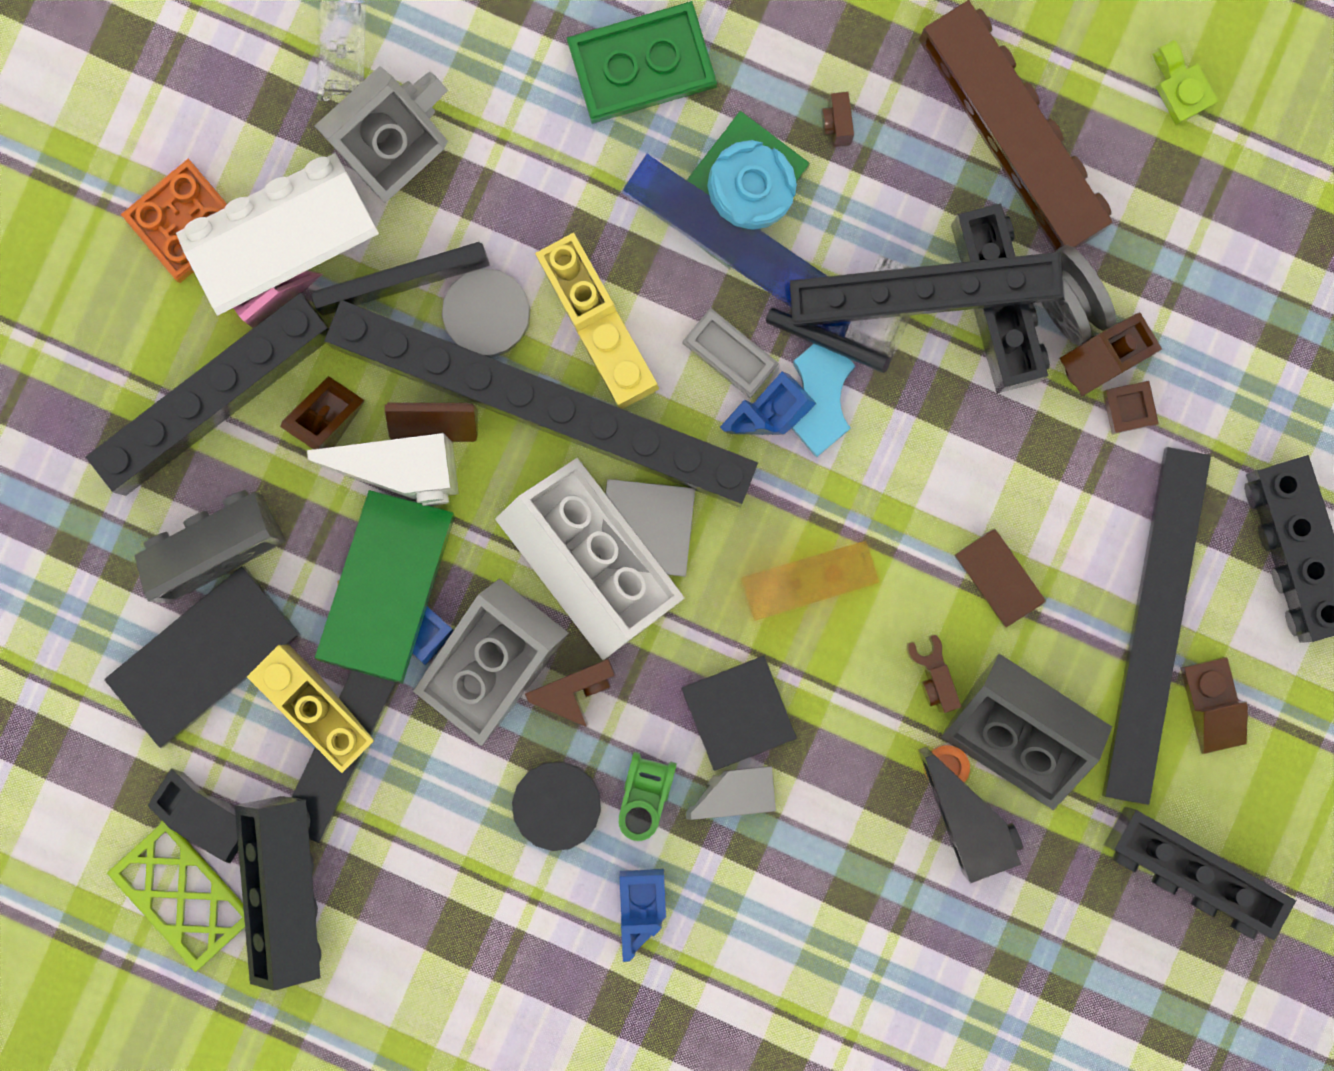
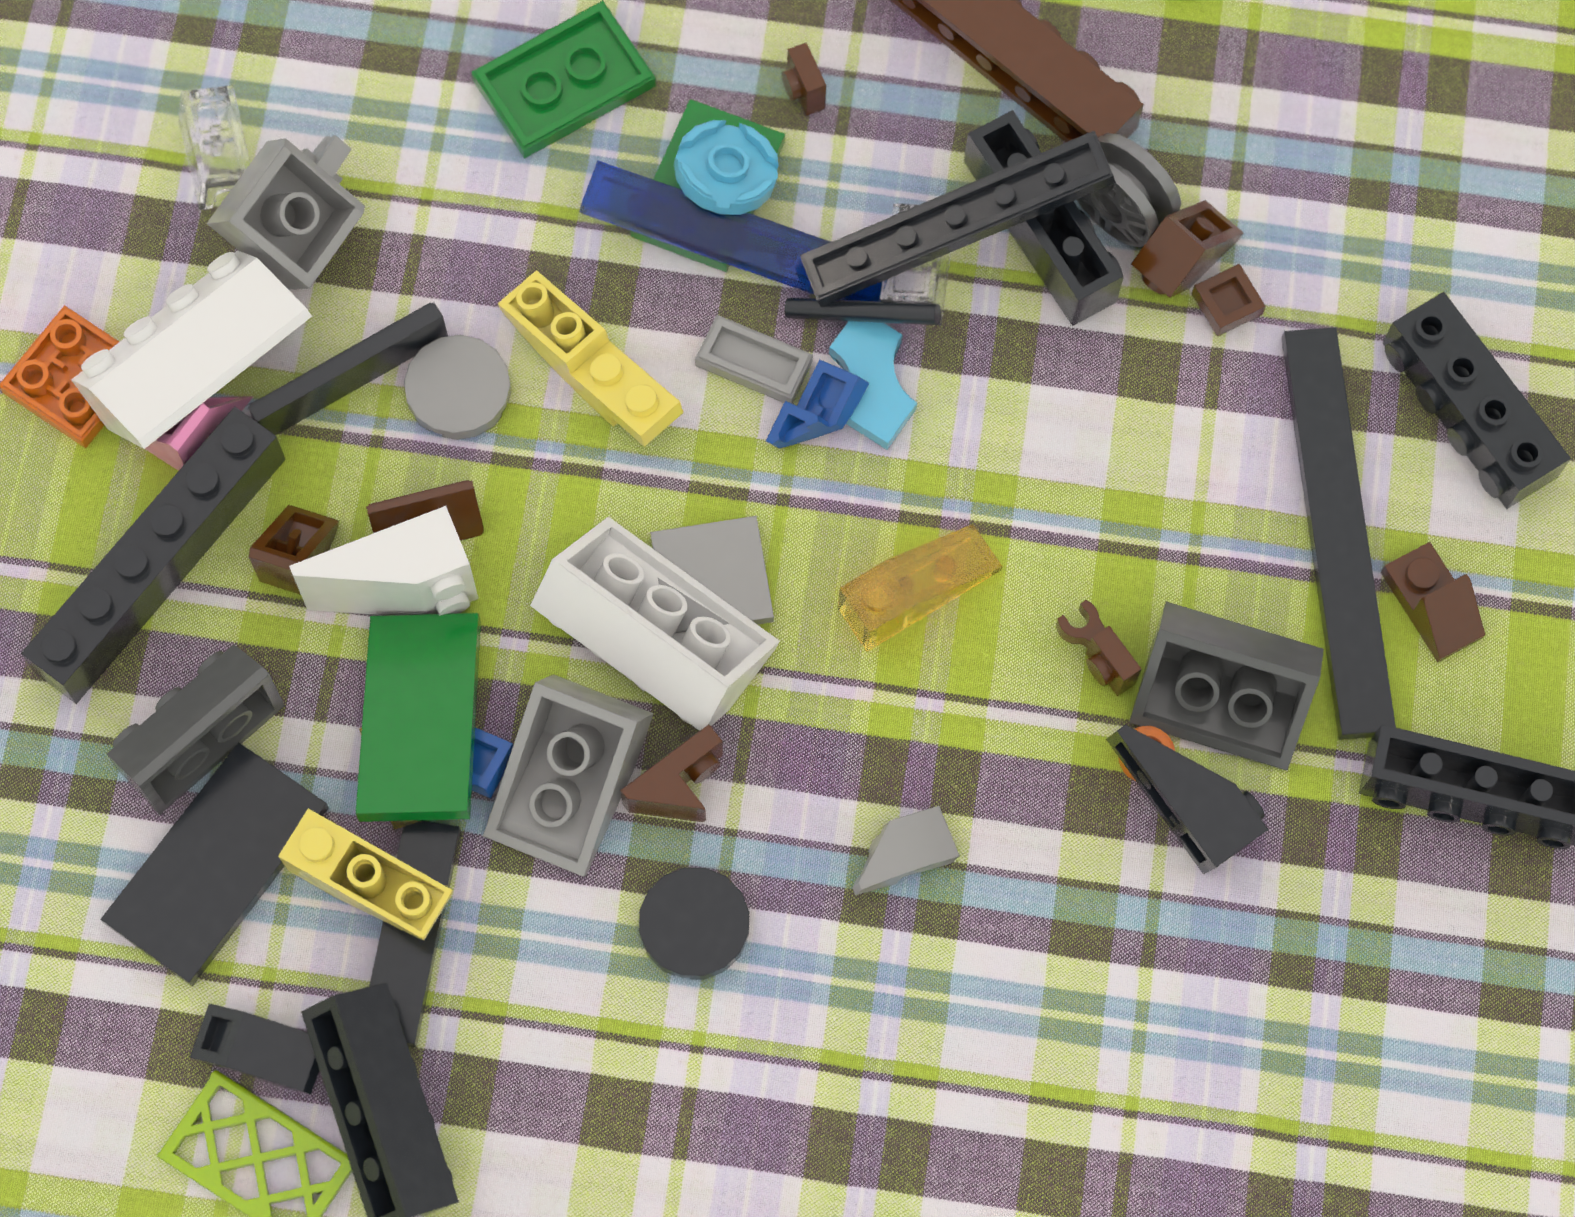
camera: 20 degrees left, 15 degrees down
(541, 403) = (550, 464): black brick -> none
(641, 908) = (830, 1016): blue slope -> none
(645, 793) = (798, 873): bright green piece -> none
(739, 713) = (881, 757): black tile -> none
(1000, 578) = (1141, 522): reddish brown slope -> none

